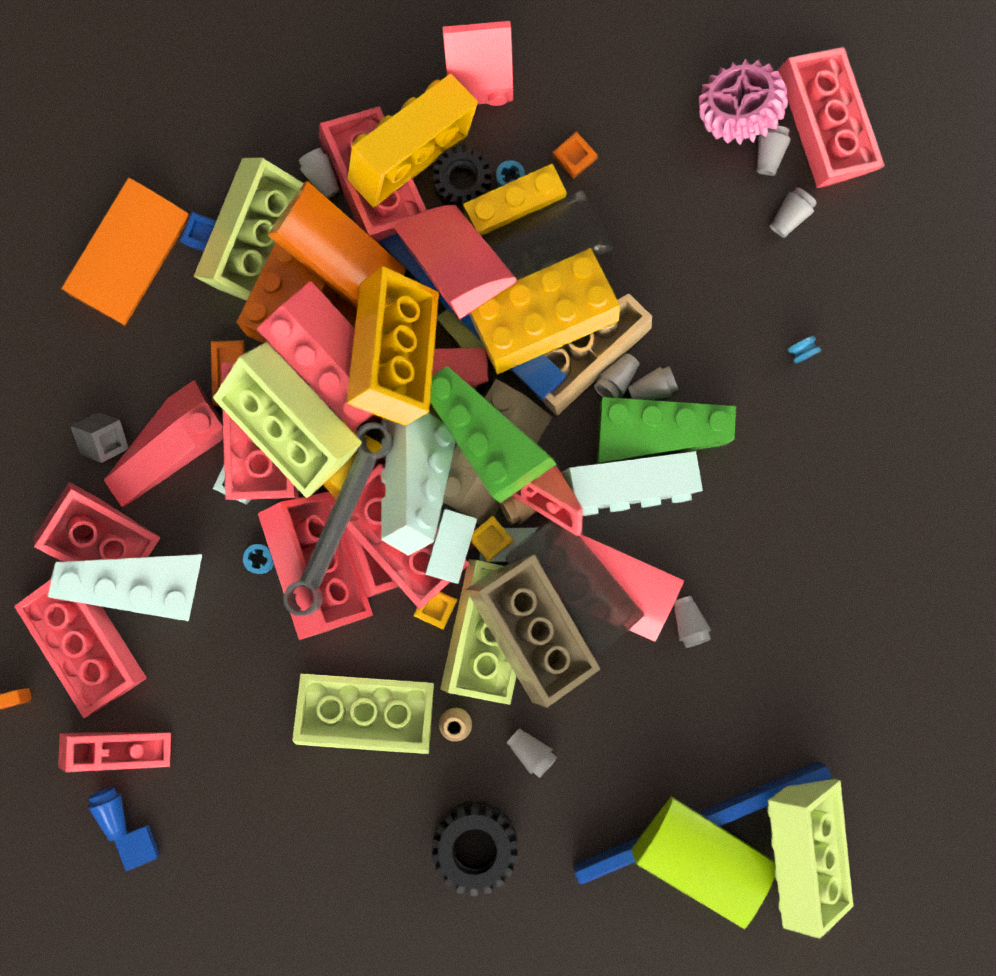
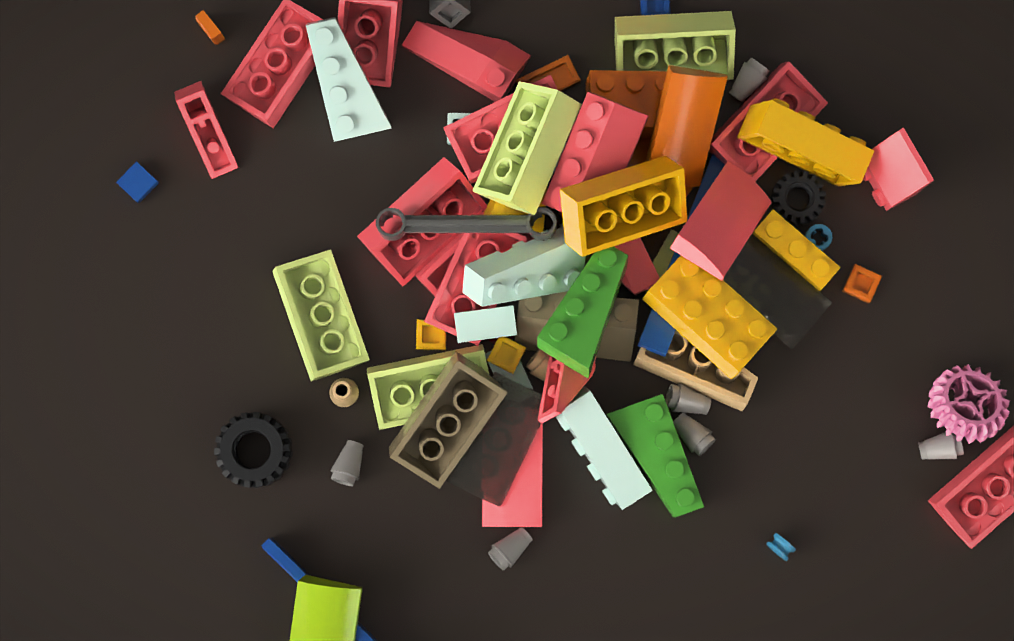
camera: 65 degrees right, 0 degrees up
(108, 812) = (155, 147): blue cone -> none
(250, 565) = (400, 169): dark azure bush -> none
(793, 211) = (895, 487): light grey cone -> none

